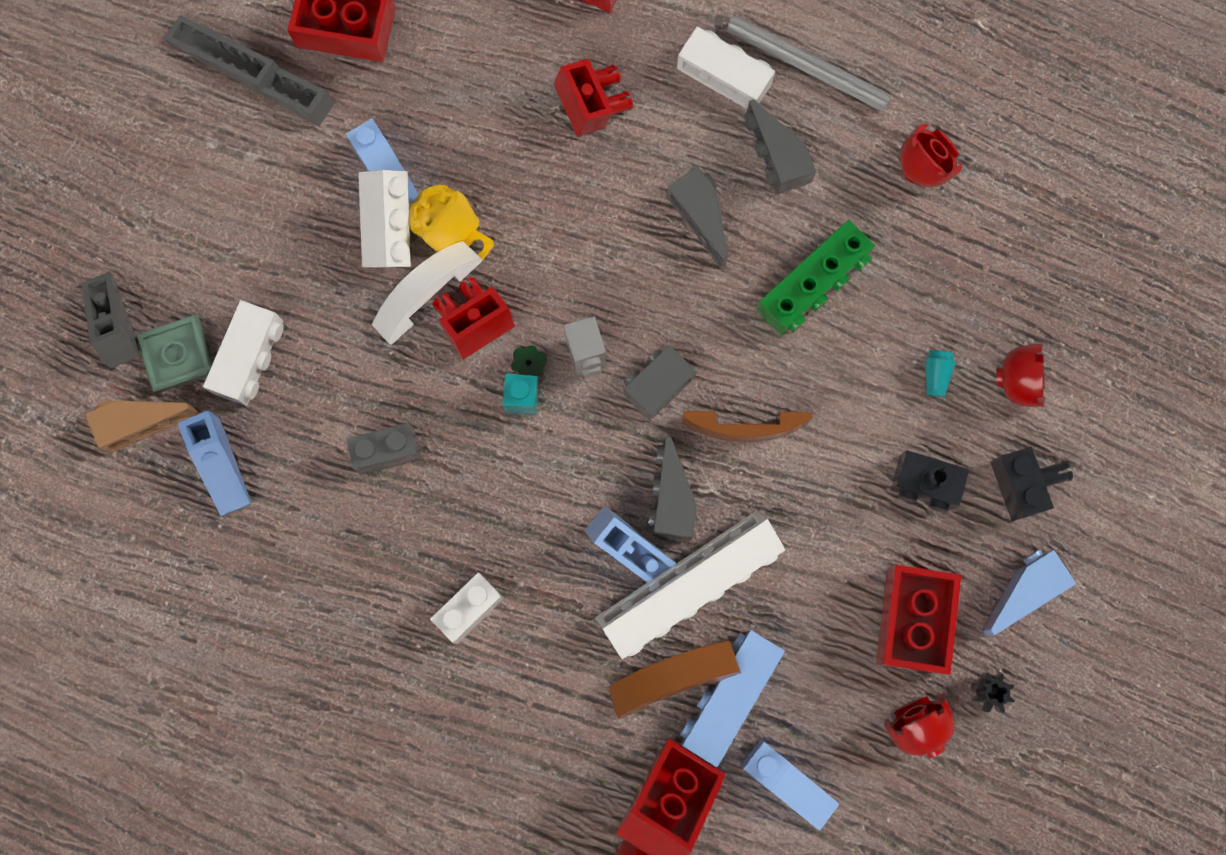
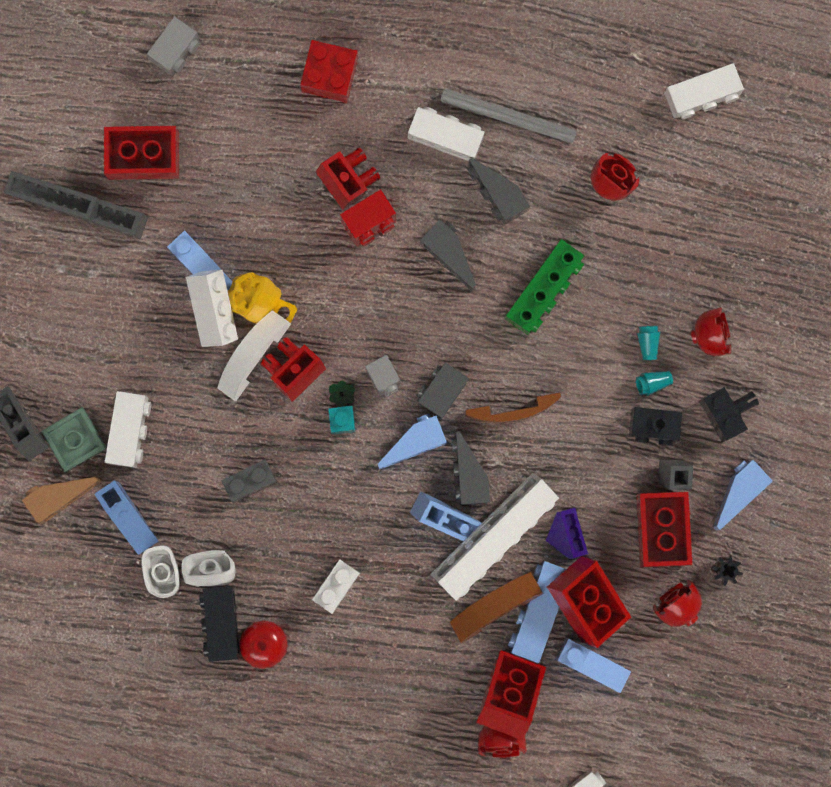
camera: 15 degrees left, 5 degrees up
(242, 542) = (160, 571): none -> white piece
(304, 627) = (220, 623): none -> black brick
(305, 552) = (208, 569): none -> white piece
(356, 666) = (263, 644): none -> red cylinder
(607, 148) = (369, 219): none -> red brick
(614, 439) = (417, 440): none -> light blue slope
(786, 601) = (567, 534): none -> dark purple slope
(801, 697) = (589, 601): none -> red brick
(934, 425) = (653, 381): none -> teal cone
(946, 550) = (675, 474): none -> dark grey brick
(1061, 77) = (704, 92): none -> white brick

